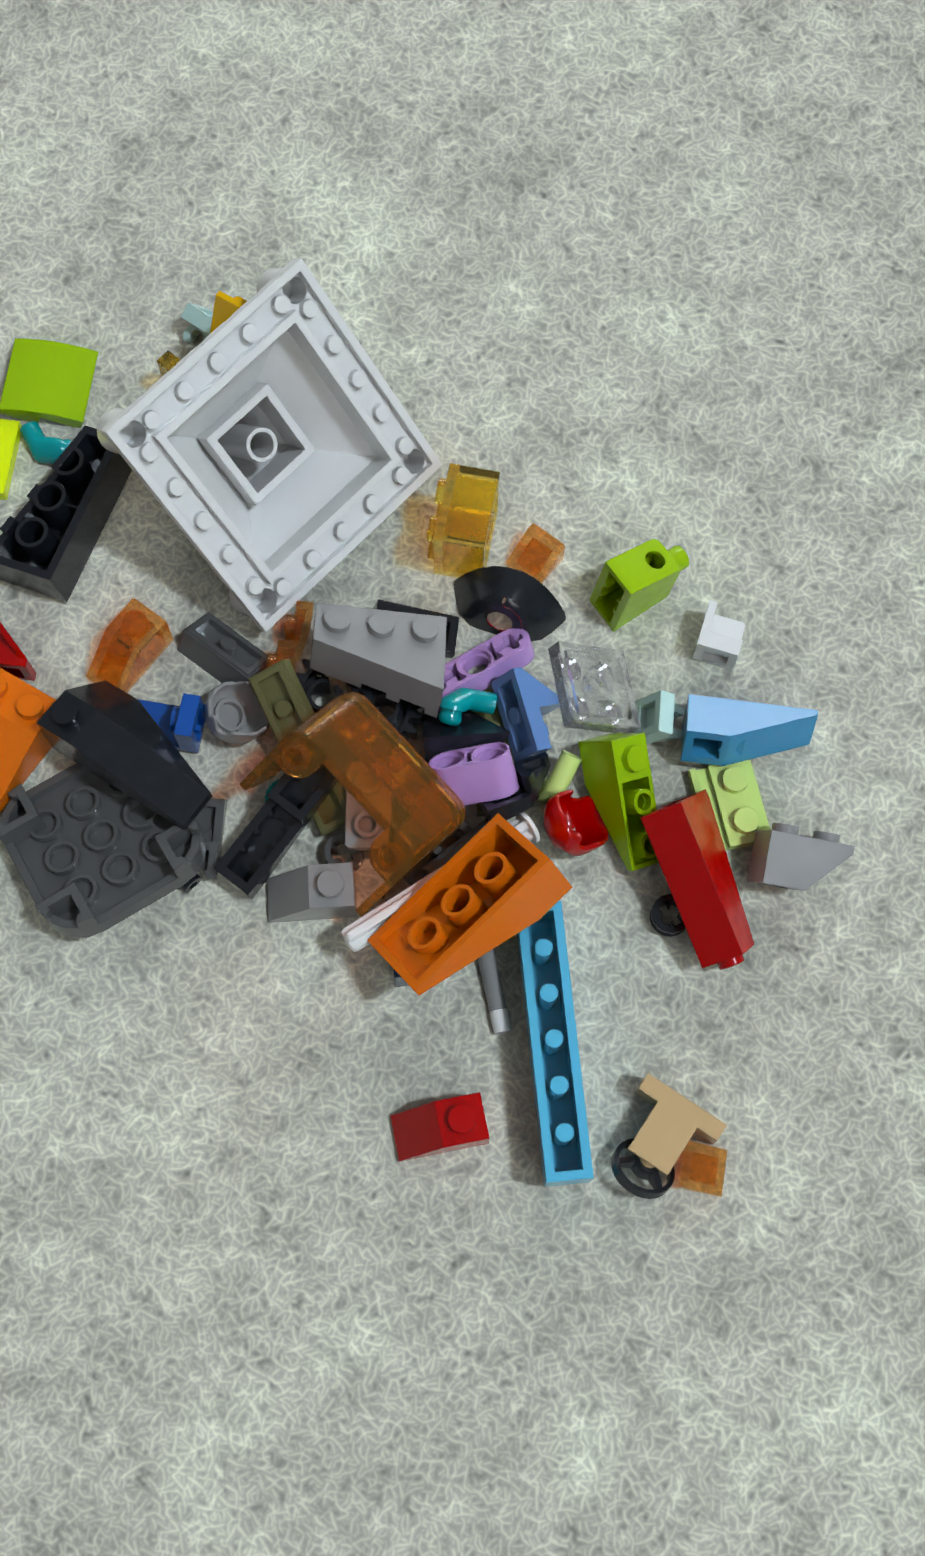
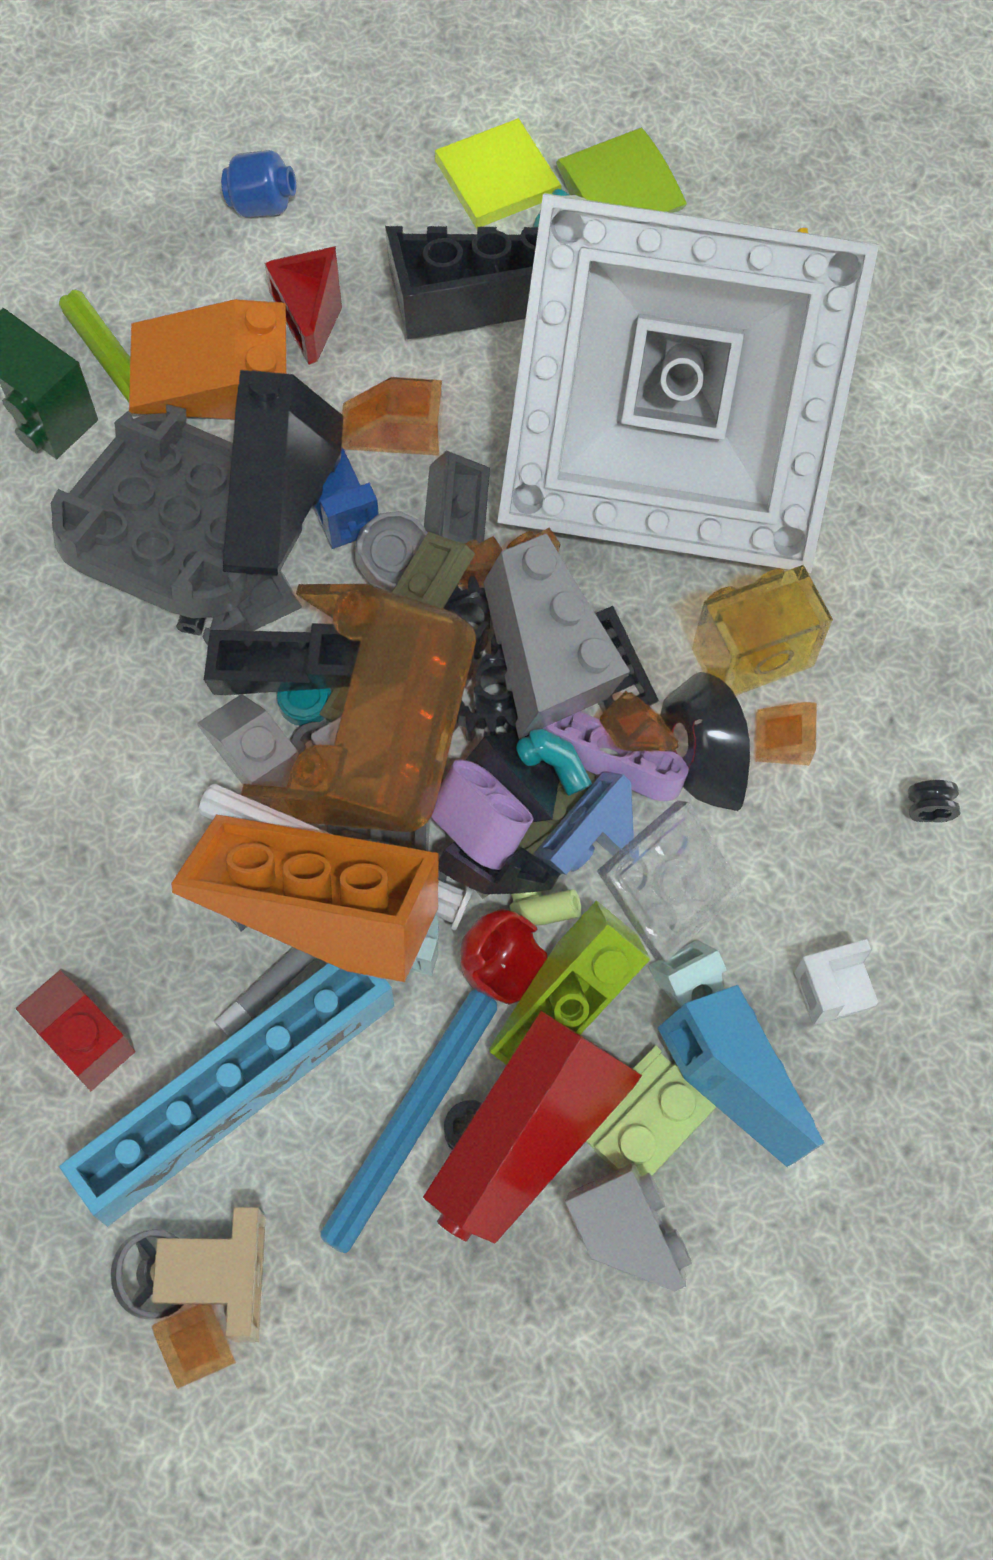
camera: 55 degrees right, 5 degrees down
(306, 845) = (302, 705): none -> teal tile
(472, 641) = (637, 726): none -> clear orange slope
(636, 581) = (833, 850): lime torso -> none
(641, 501) = (934, 801): none -> black bush
(641, 949) = (408, 1122): none -> dark azure axle

